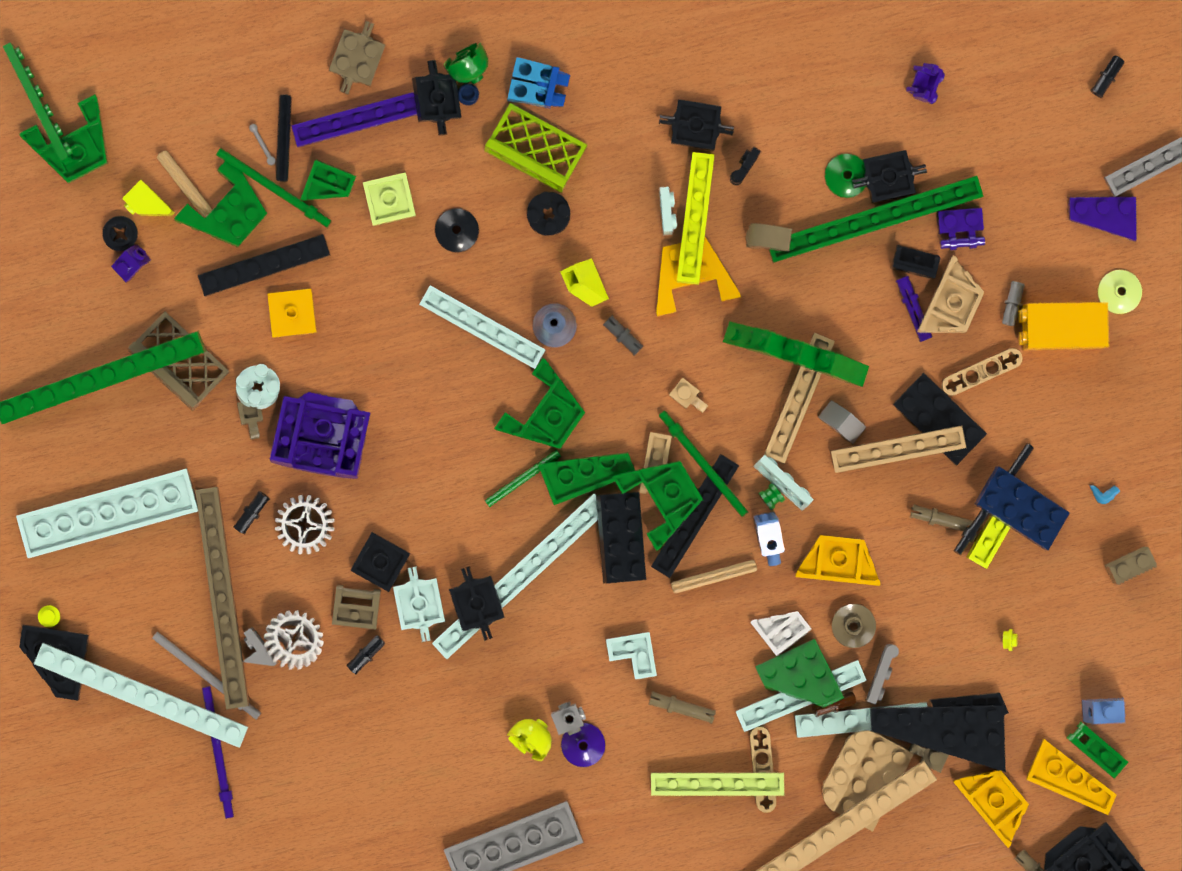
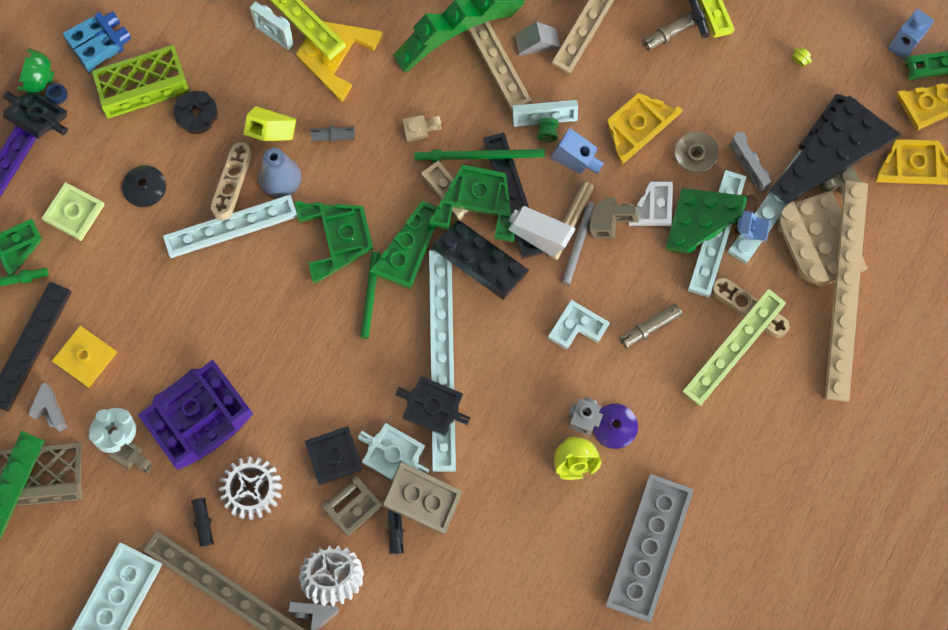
camera: 55 degrees left, 15 degrees down
(236, 321) = (45, 403): none -> light grey slope
(404, 654) = (421, 498): none -> dark tan plate
(515, 292) = (231, 180): none -> tan beam
(678, 566) = (540, 230): none -> white slope
(701, 597) = (578, 243): none -> light grey bar
(740, 601) = (607, 214): none -> dark tan brick
(824, 721) = (753, 227): none -> medium blue bracket

